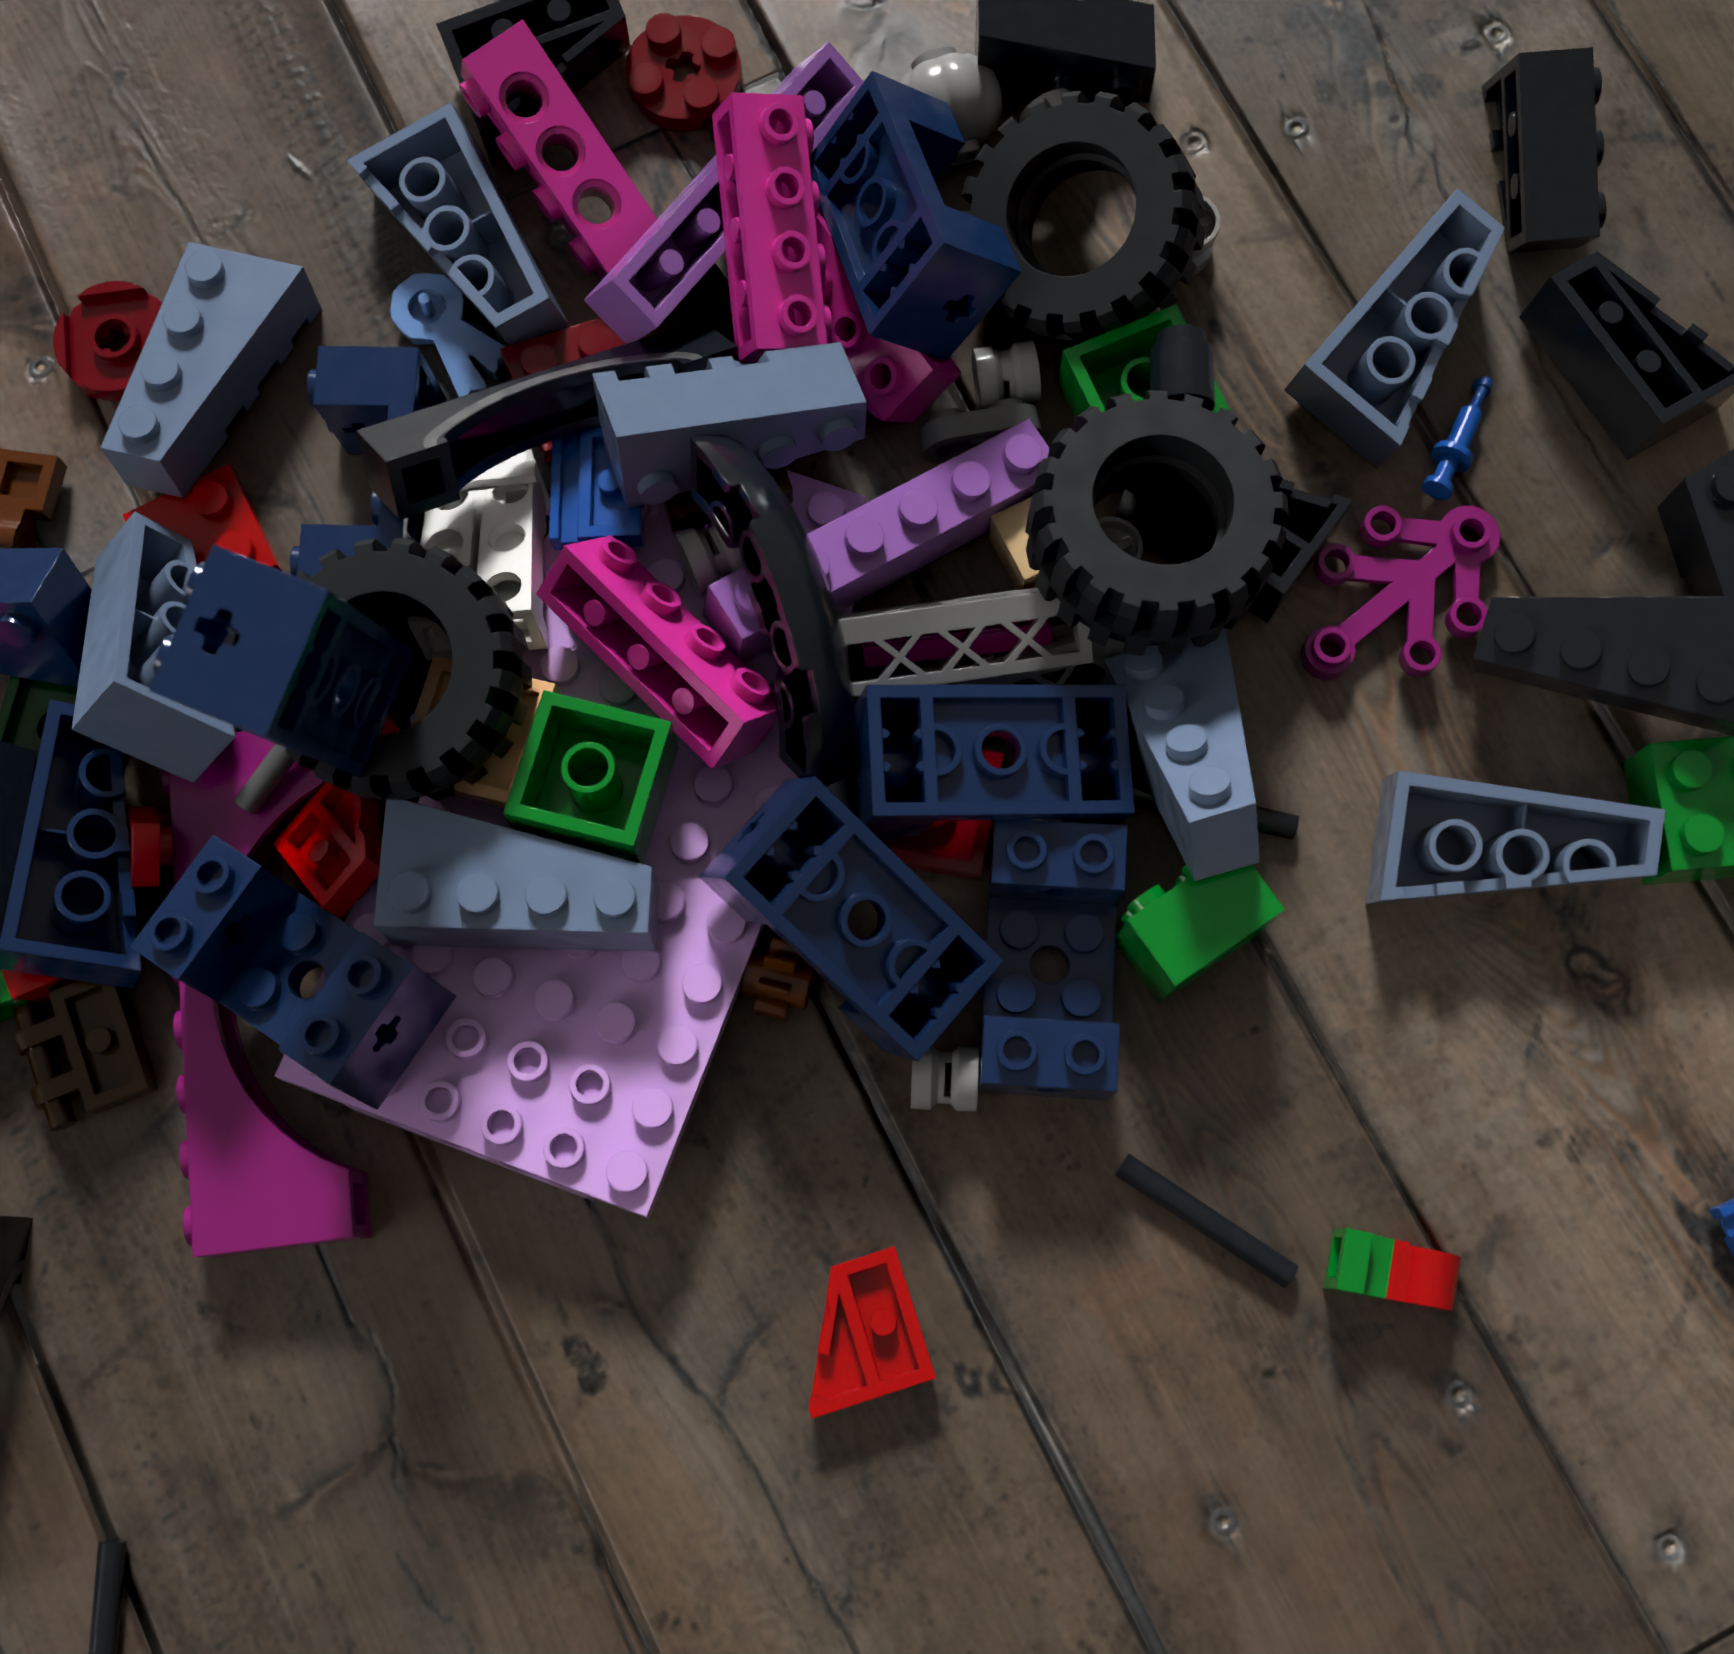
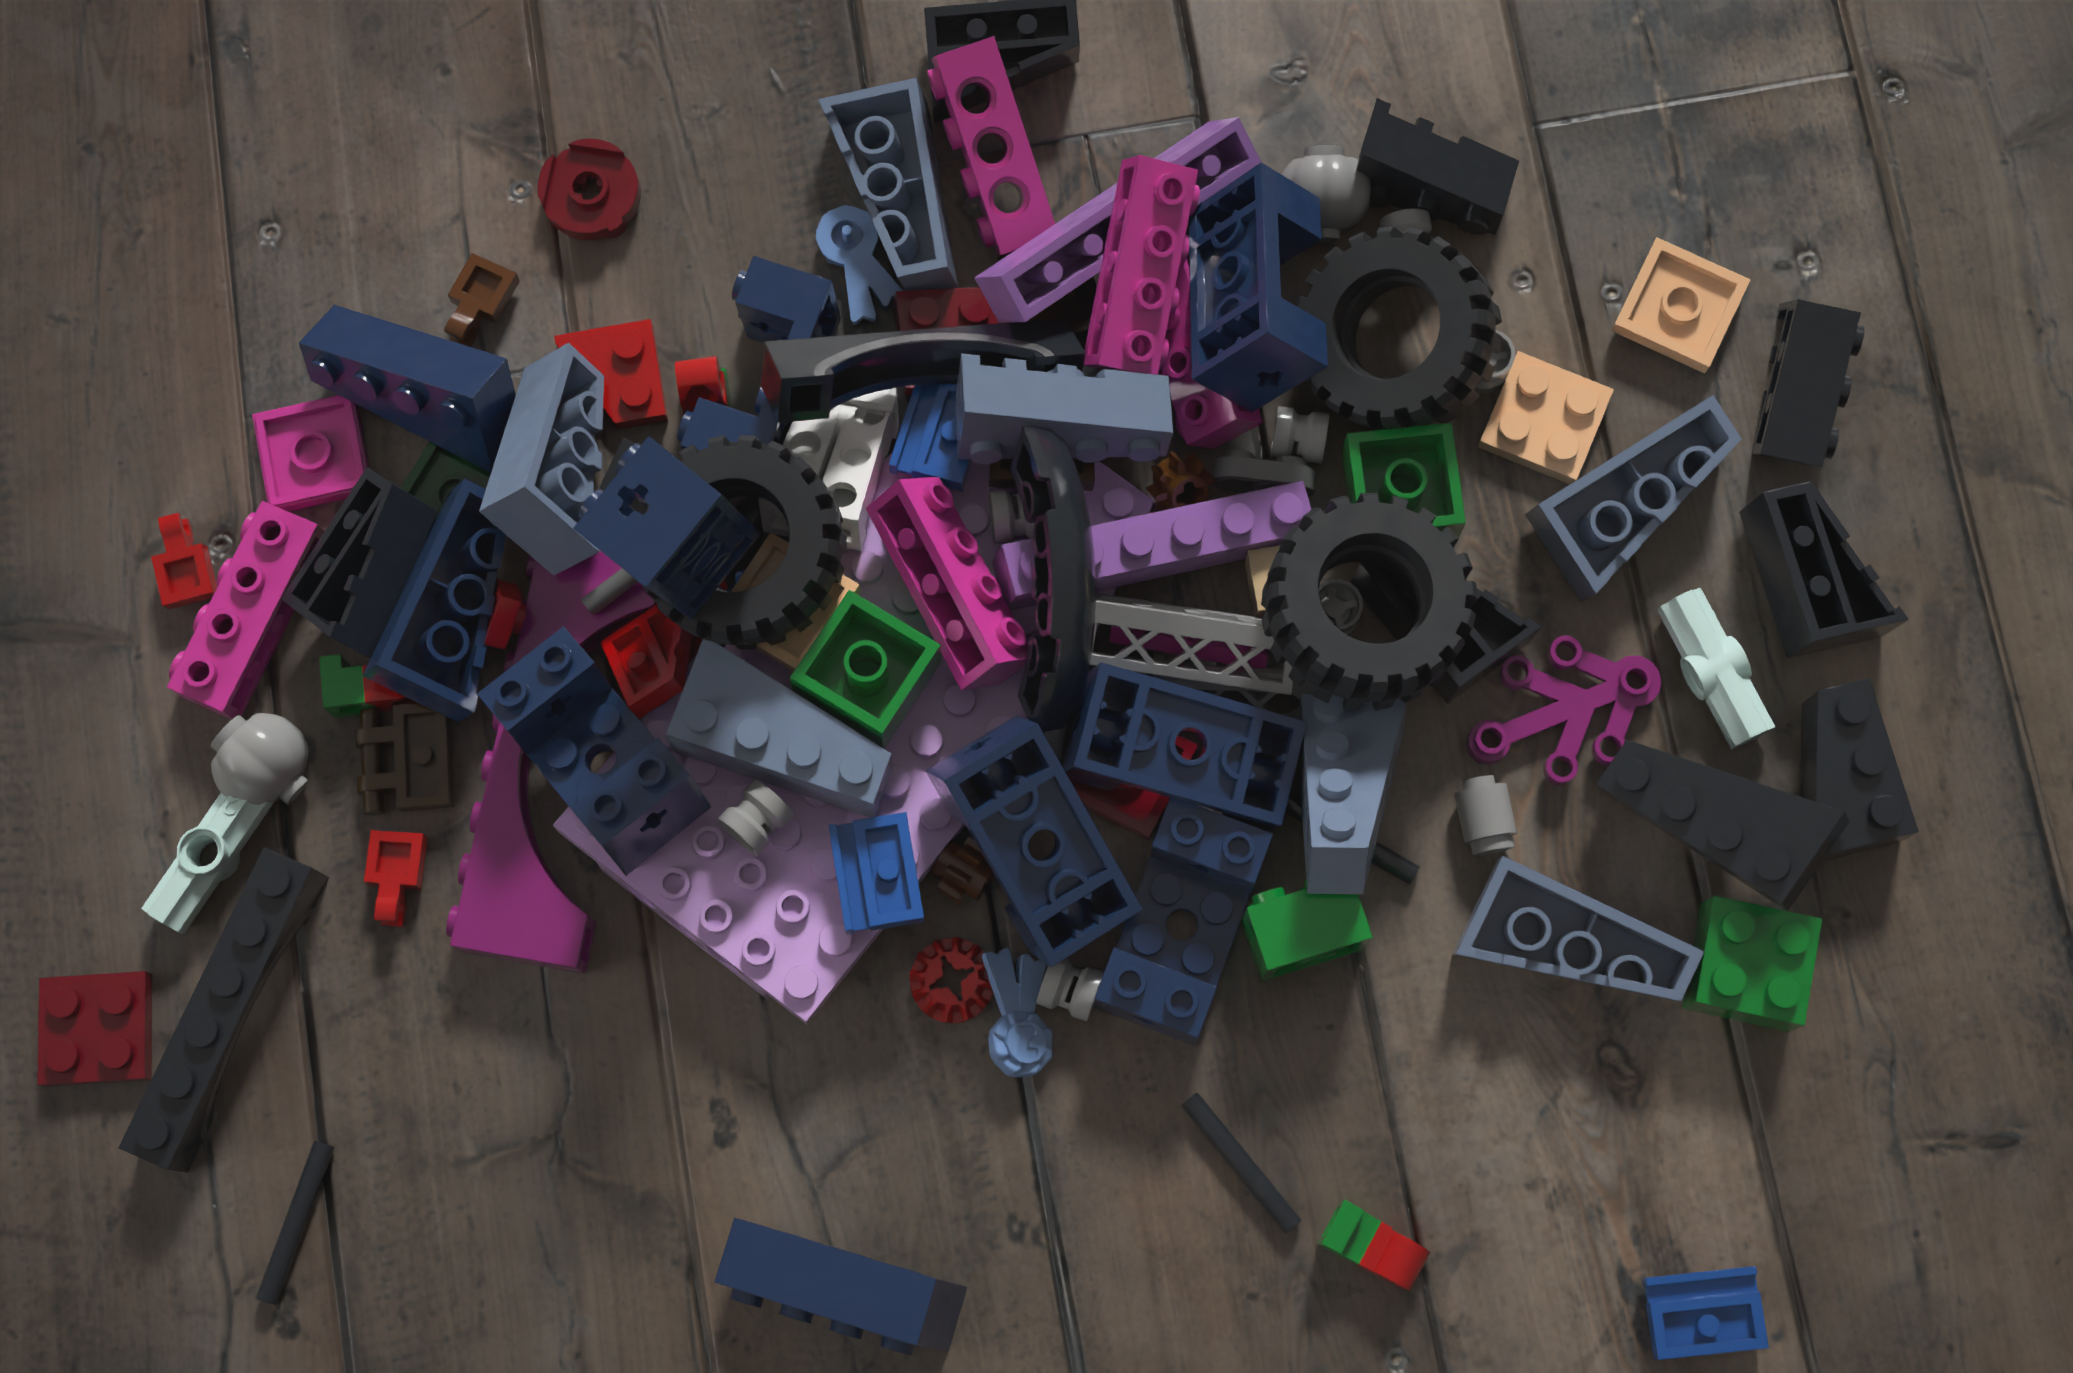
camera: 15 degrees right, 0 degrees up
(101, 1181) = (394, 864): none -> red plate
(203, 362) = (655, 231): sand blue wedge -> none
(302, 504) = (701, 379): none -> red leg
(513, 992) = (755, 817): none -> light grey wheel
(677, 42) = (1113, 68): dark red plate -> none
(677, 1014) = (876, 873): none -> blue plate
(782, 1525) = (839, 1286): none -> dark blue wedge
(800, 1142) = (941, 1003): none -> red gear
(867, 1335) = (948, 1168): red wing -> none
(887, 463) = (1179, 482): none -> reddish brown gear
(904, 1155) = (1019, 1039): none -> medium blue piece
(1183, 364) = (1434, 482): black brick -> none
(1271, 280) = (1545, 418): none -> light nougat plate
(1355, 734) = (1486, 815): none -> light grey brick
(1379, 114) = (1681, 305): none -> light nougat plate
(1454, 452) = (1645, 609): blue piece -> none
(1554, 493) = (1715, 668): none -> light aqua piece

